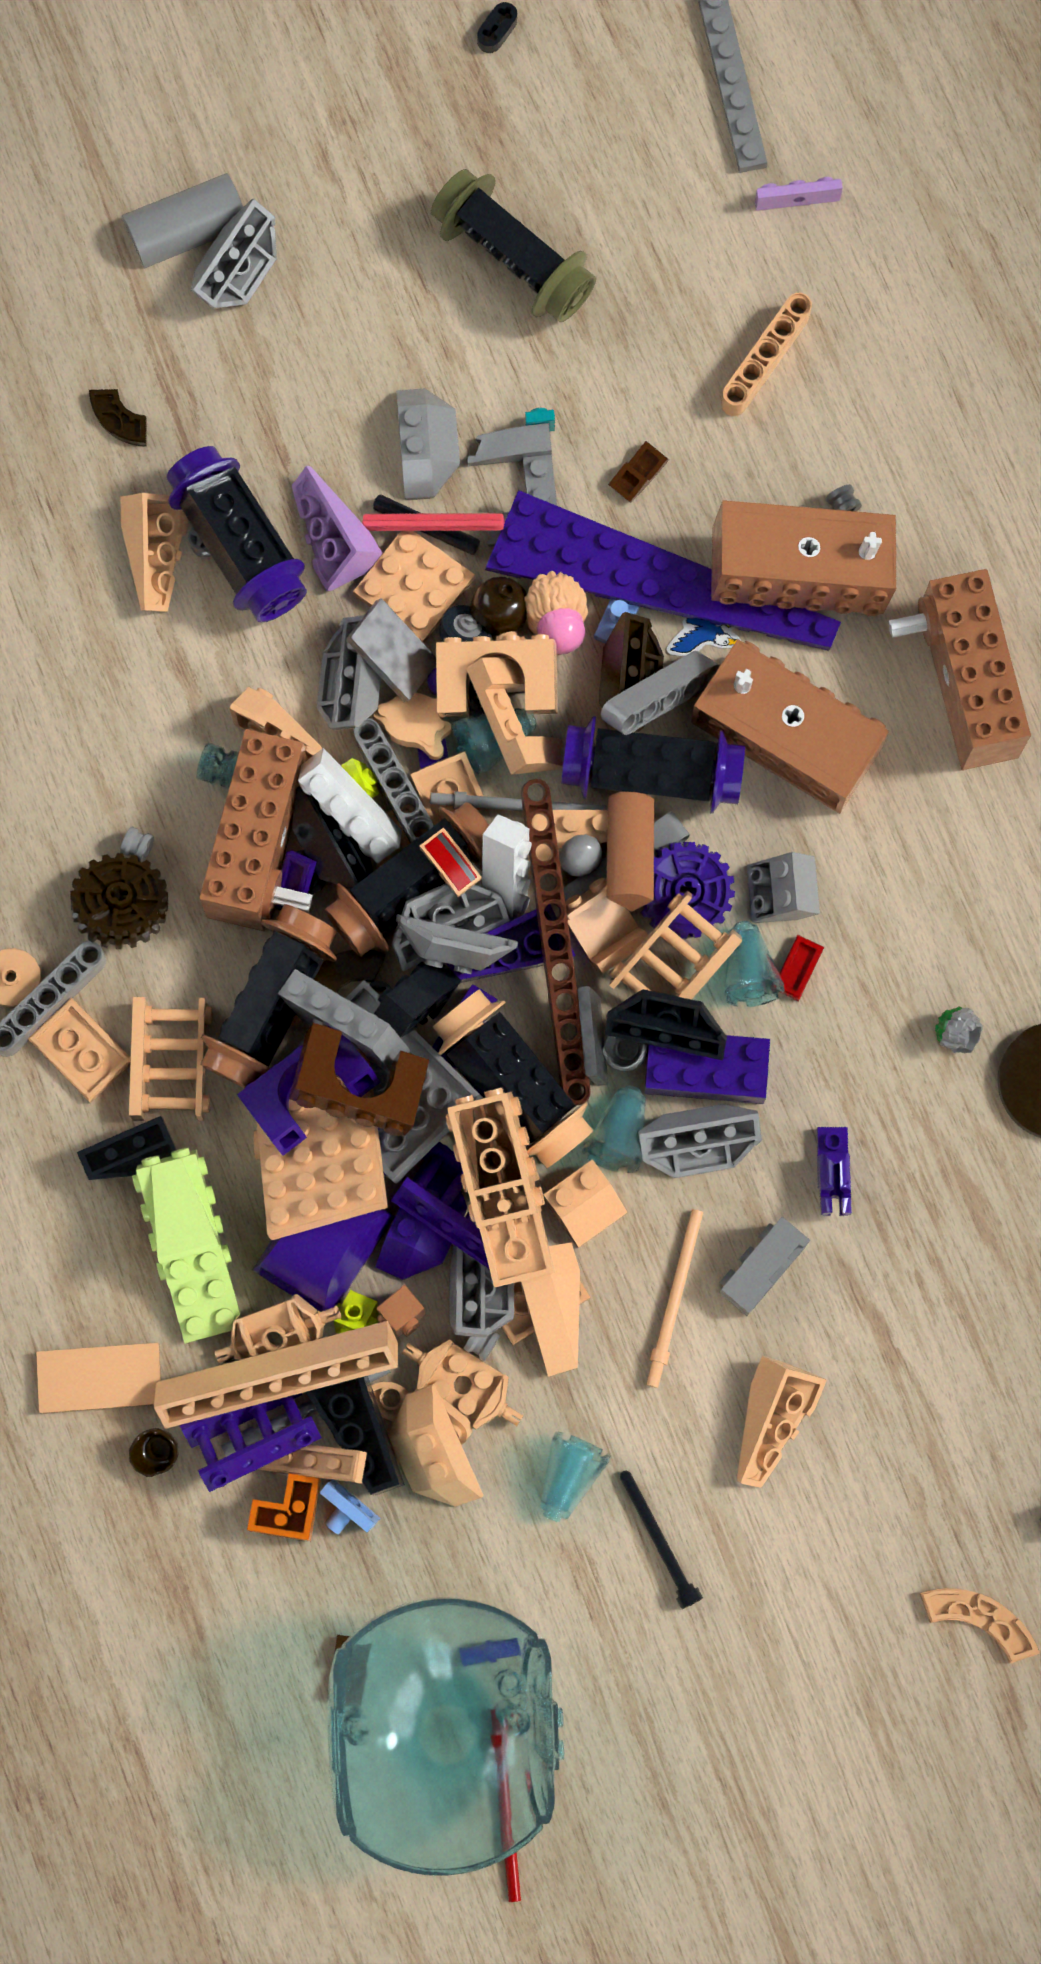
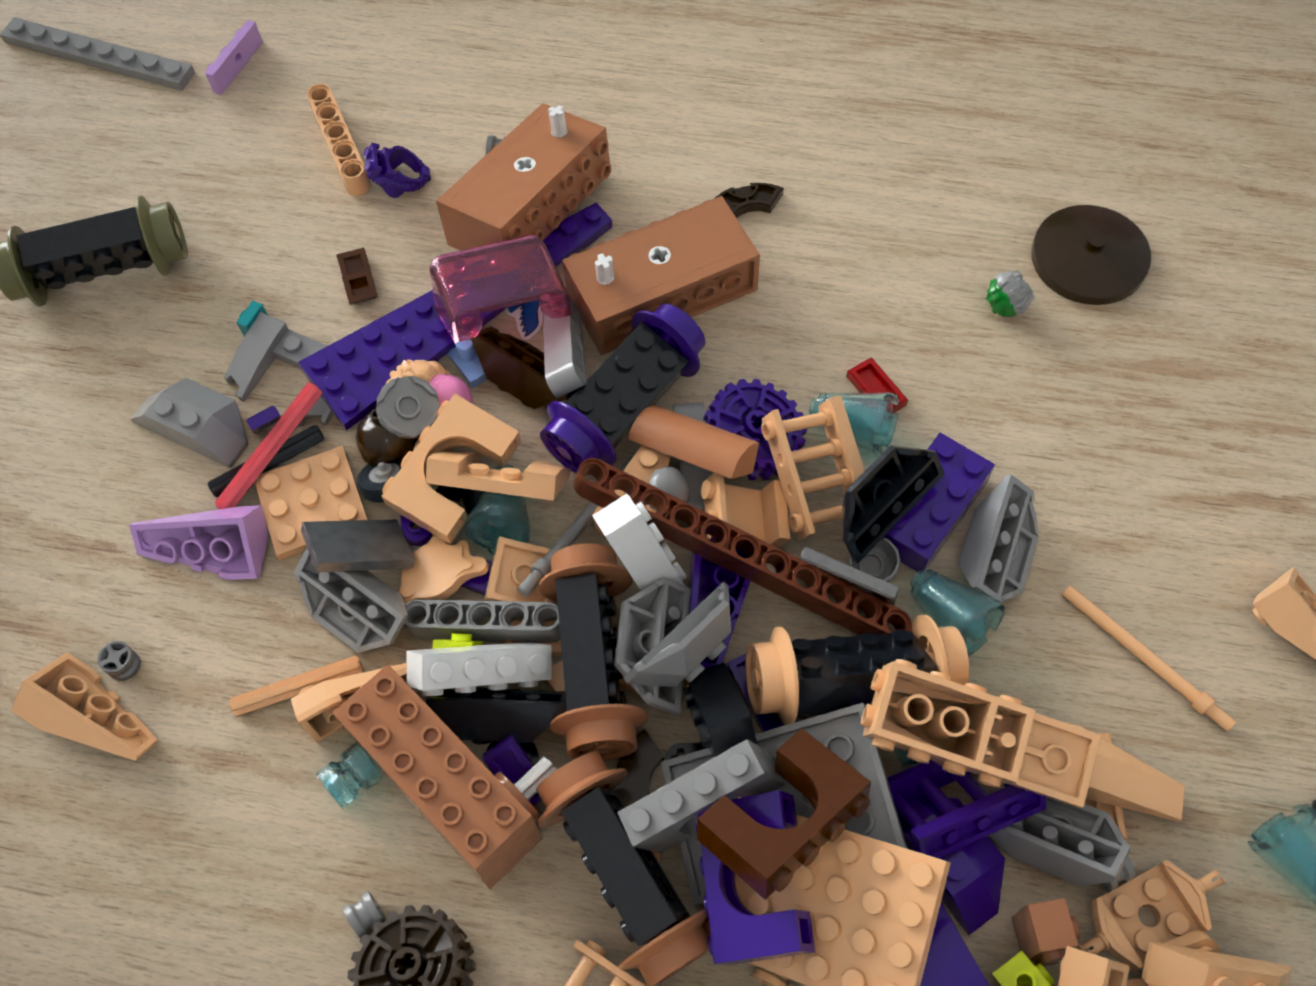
camera: 55 degrees left, 15 degrees down
(237, 533) = (135, 618): brick -> none
(264, 680) = (292, 686): none -> light nougat axle
(450, 862) = (605, 593): slope -> none
(453, 500) = (263, 419): none -> dark purple tile
(524, 608) = (407, 406): none -> light grey tile
(585, 1203) = (1009, 672): light nougat slope -> none
(679, 603) = (495, 279): none -> clear pink windscreen
(748, 417) = (381, 165): none -> dark purple piece
(763, 1265) = (1155, 555): light grey wedge -> none
(783, 888) = (799, 359): light grey slope -> none
(834, 1169) = (1090, 454): dark purple plate -> none
(931, 748) = (752, 198): none -> dark brown tile
(971, 667) = (706, 122): nougat piece -> none

